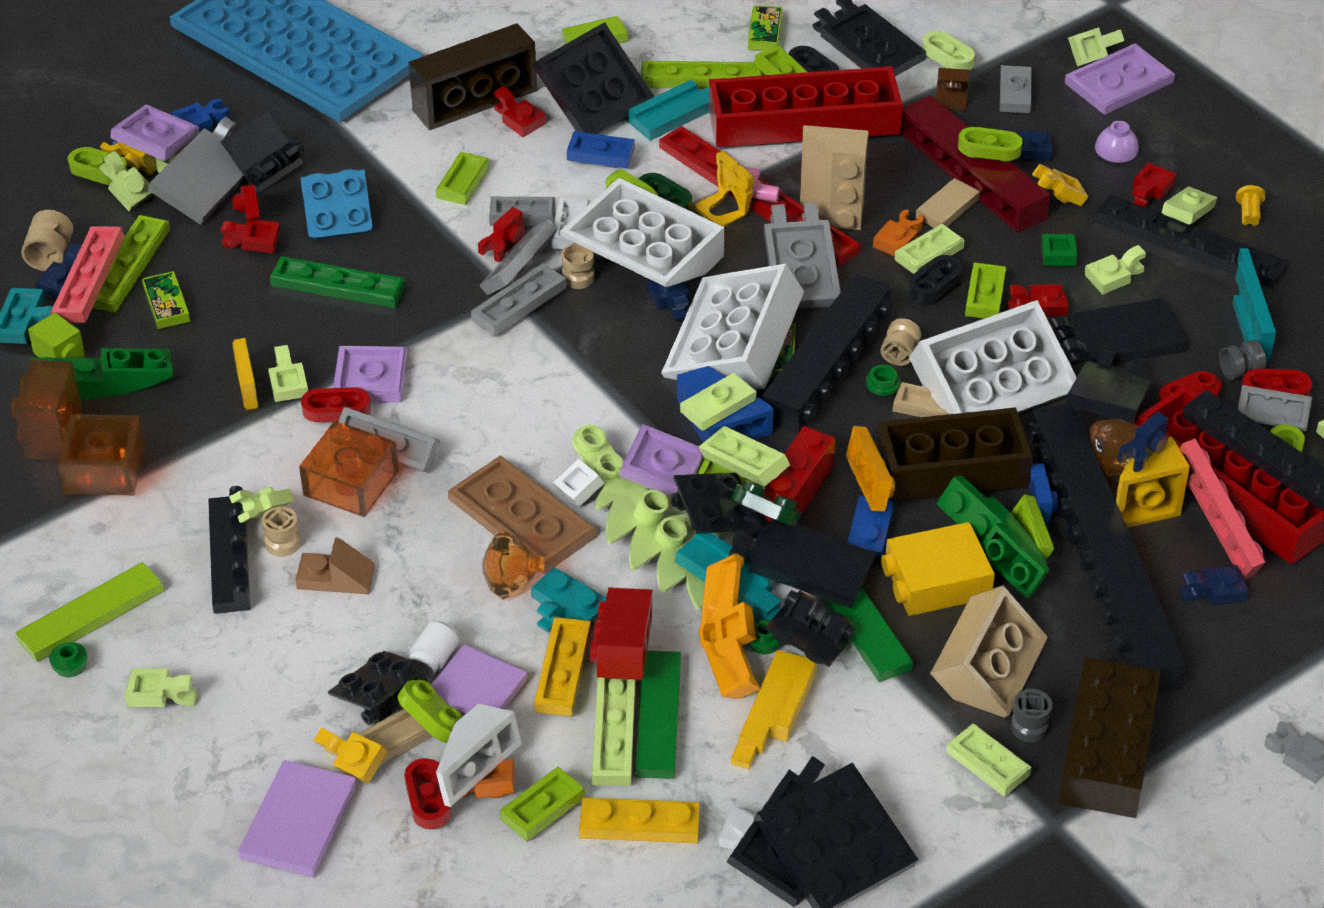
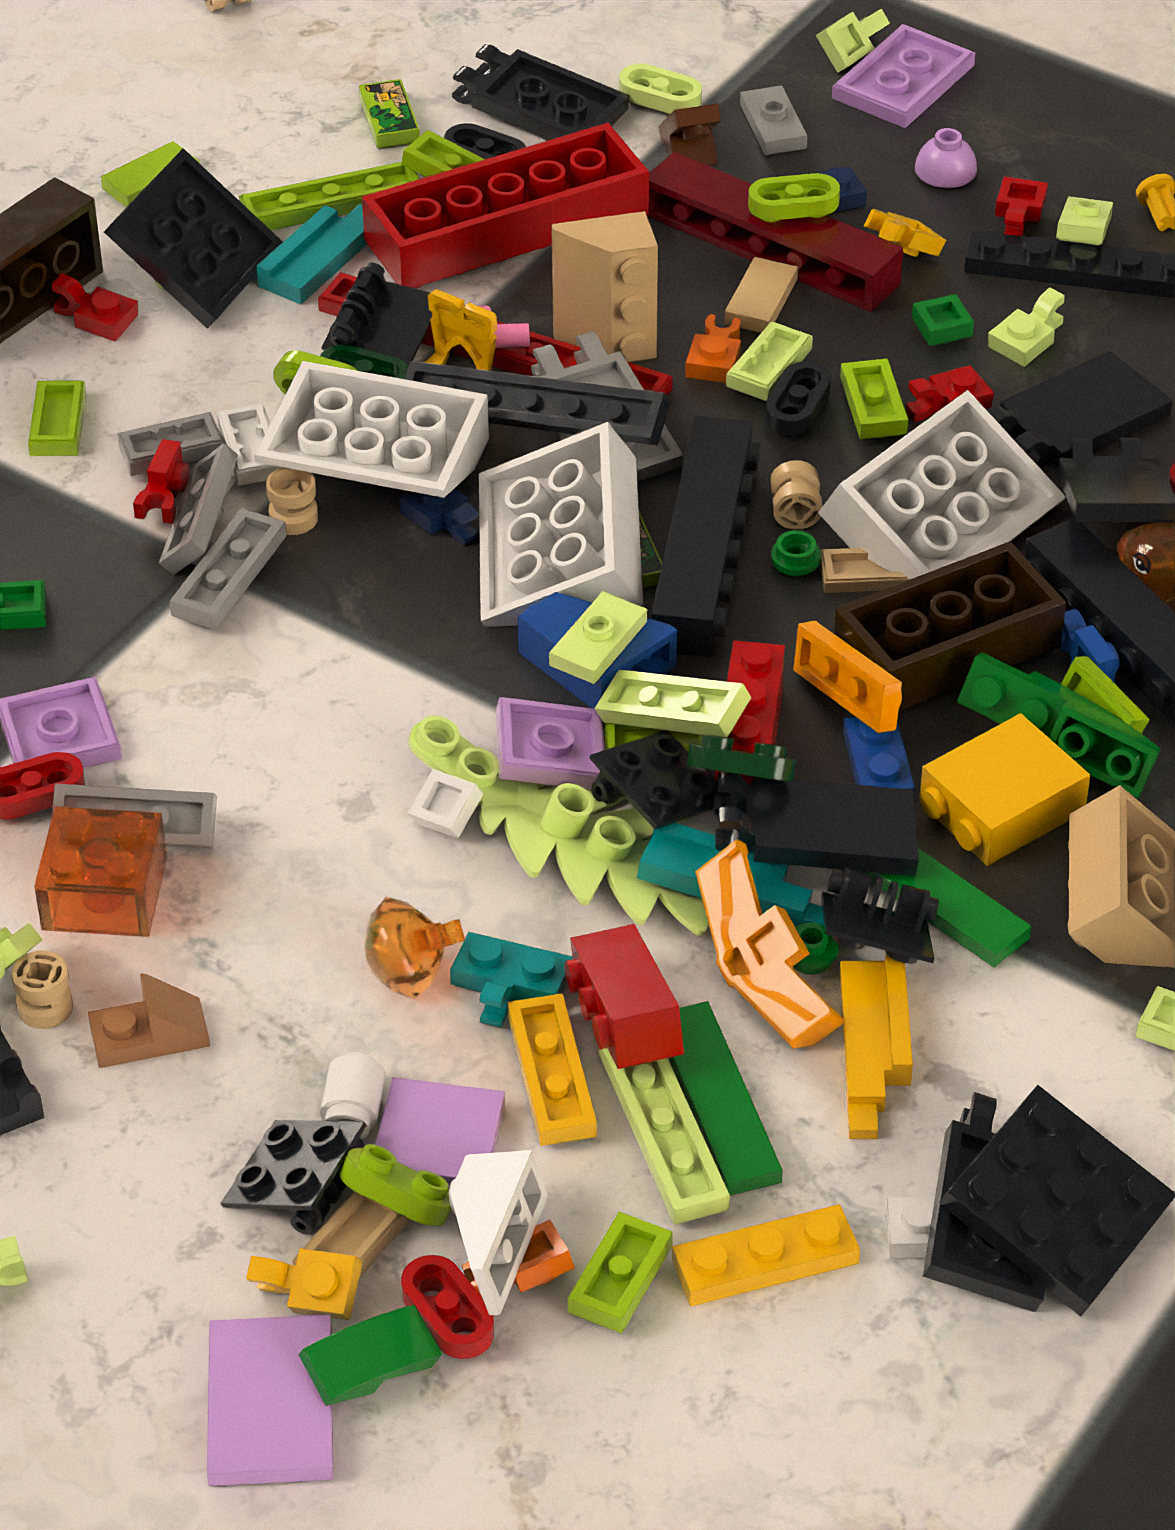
camera: 20 degrees left, 0 degrees up
(364, 807) = (367, 1353): none -> green slope
(509, 500) = (363, 859): medium nougat tile -> none
(600, 149) = (242, 331): blue plate -> none
(688, 161) = (381, 316): none -> black hinge
(765, 242) = (555, 403): none -> black plate

